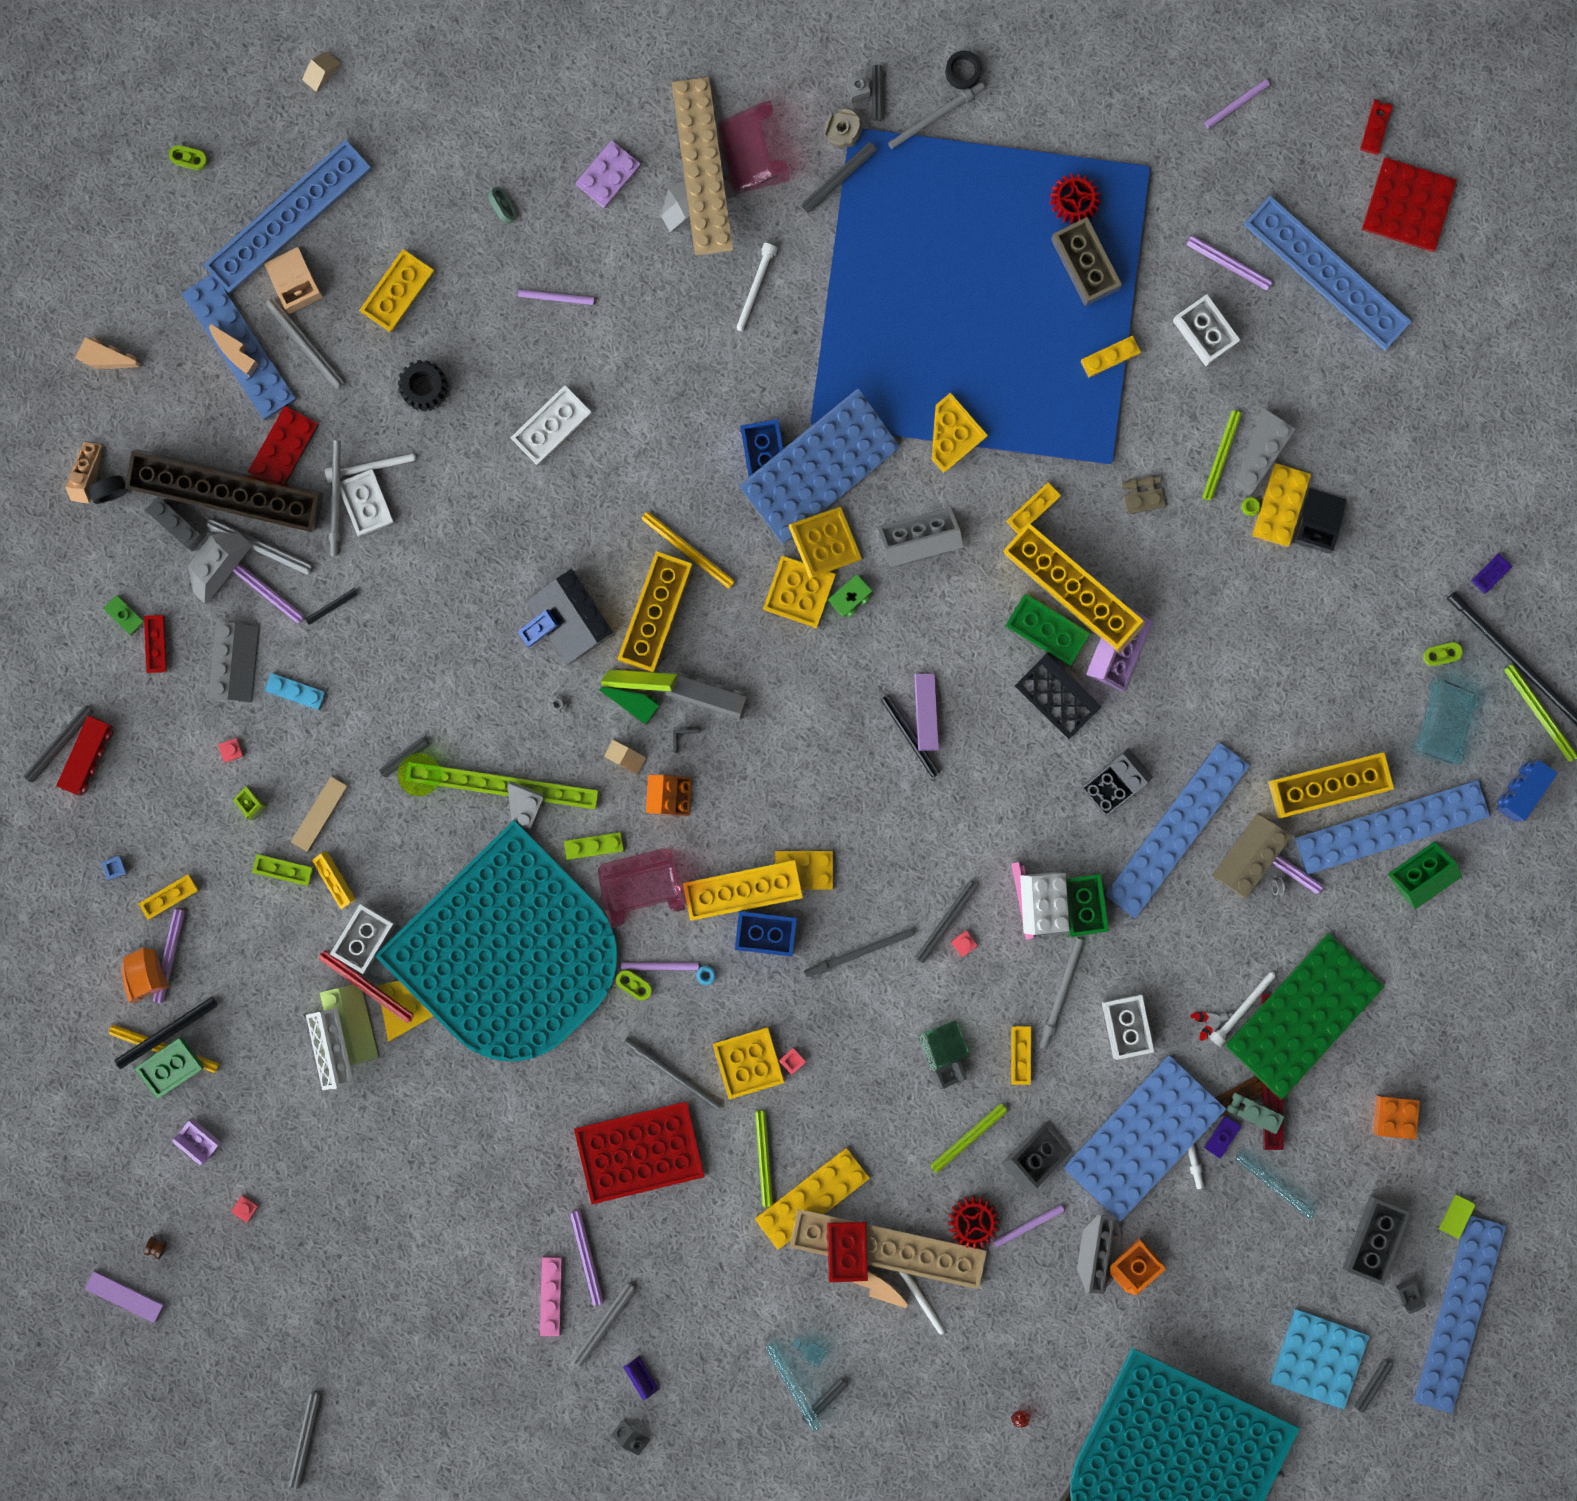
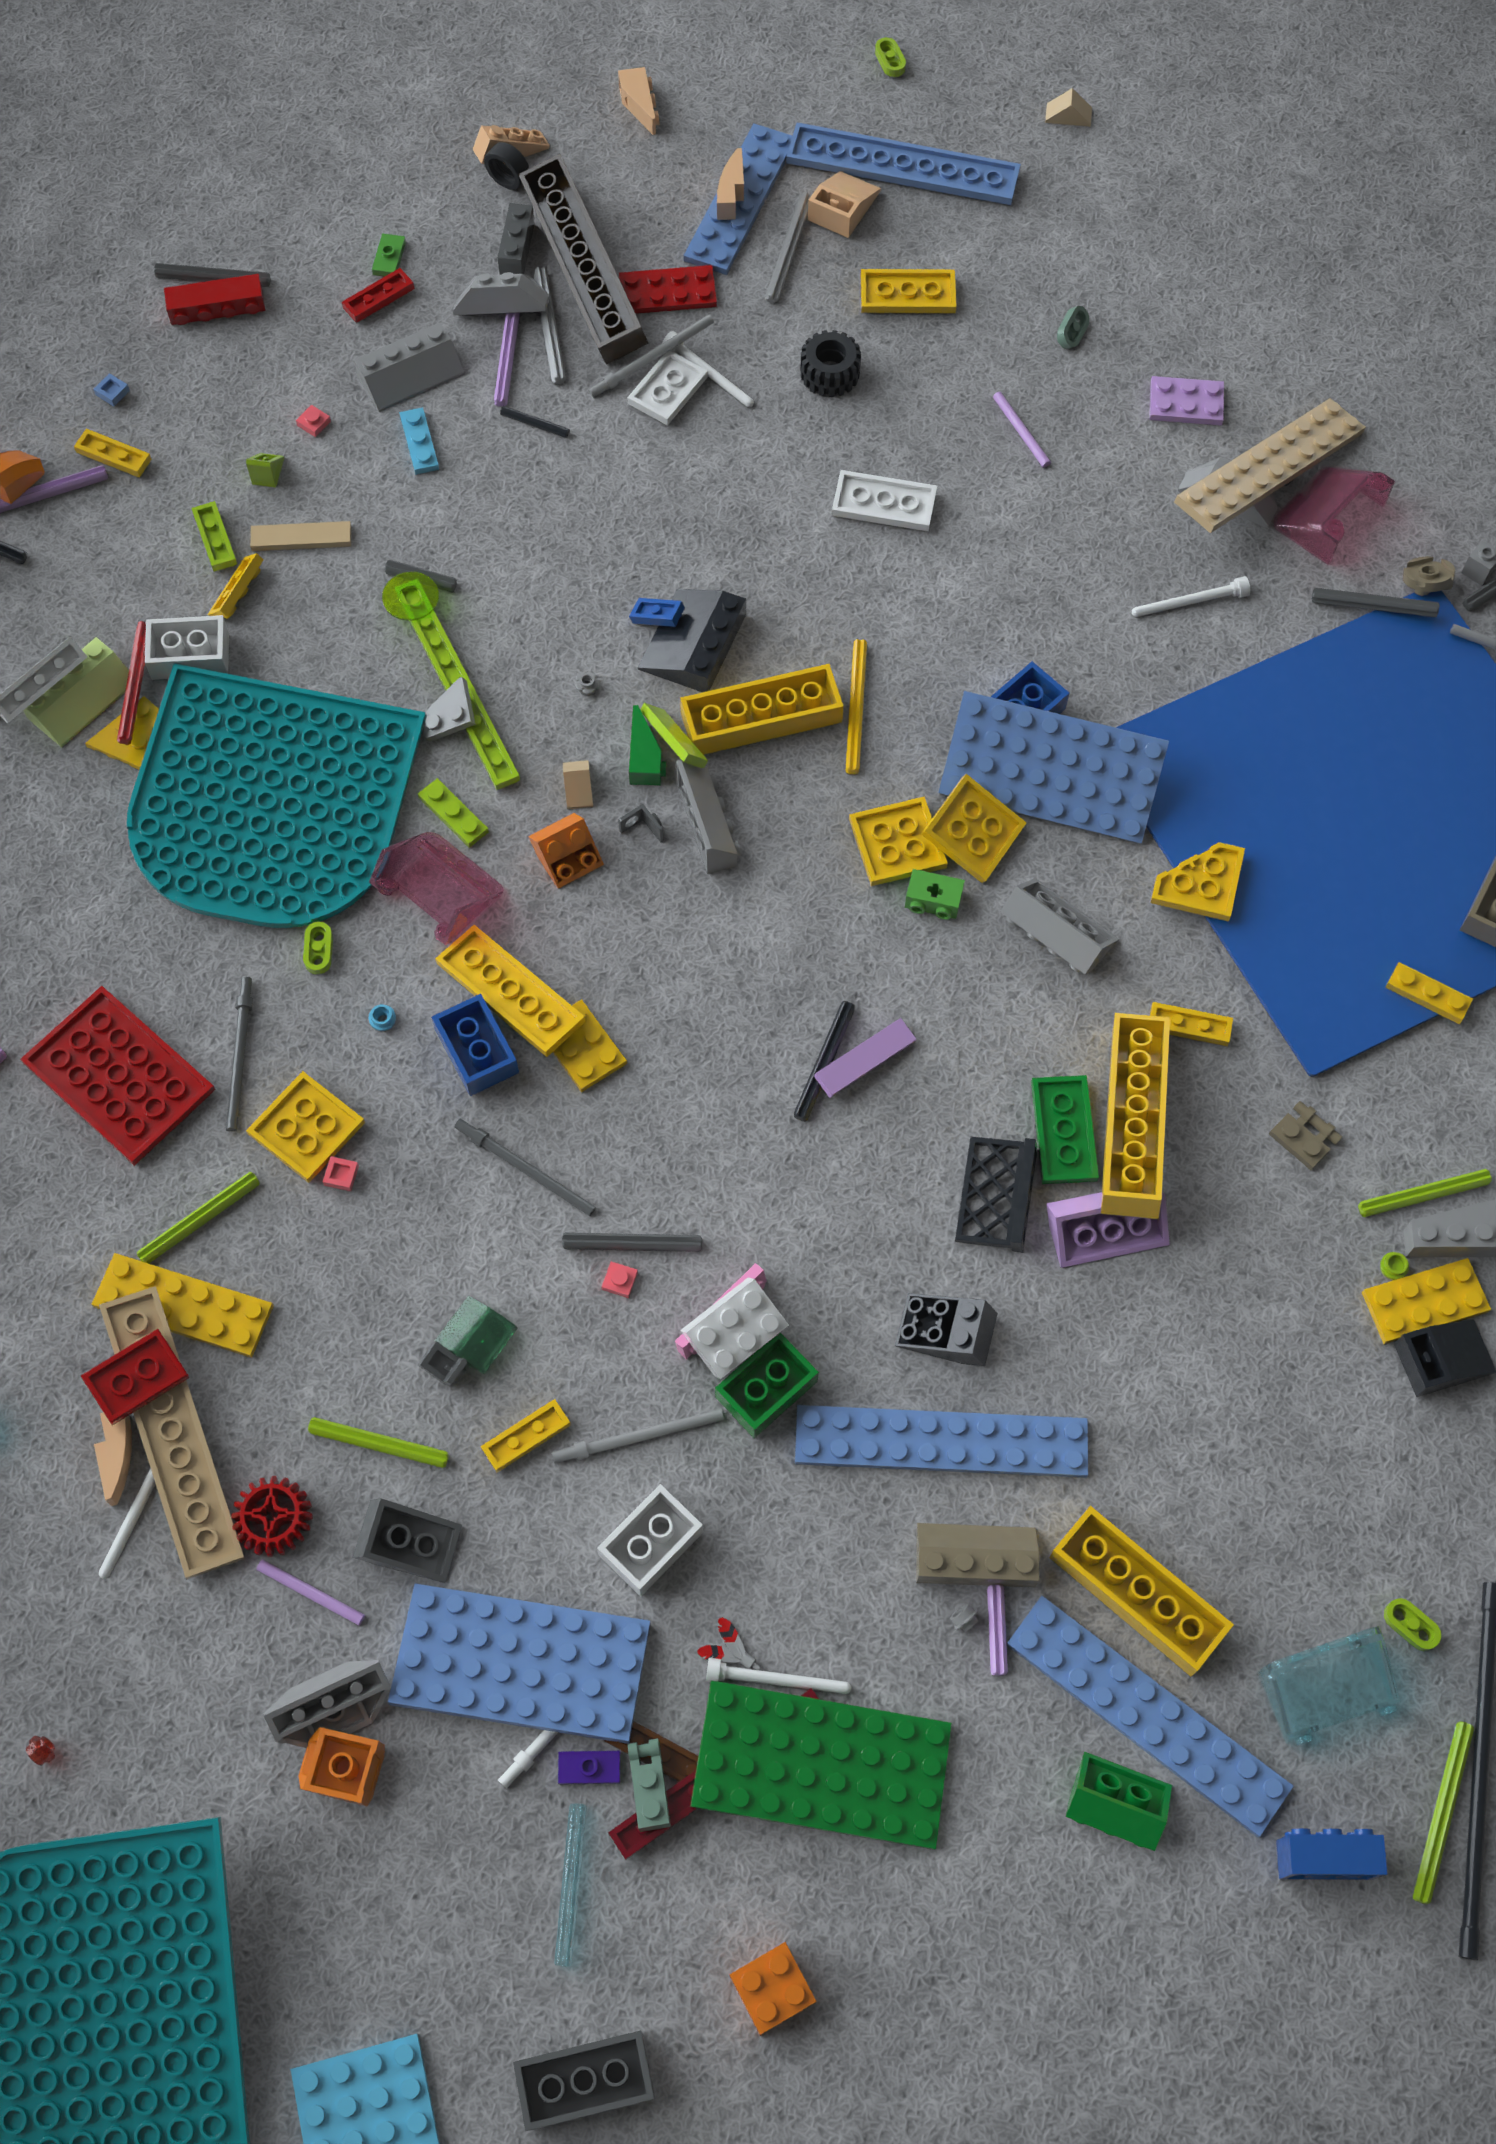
camera: 55 degrees right, 20 degrees down
(660, 966) = (360, 963): lavender bar -> none

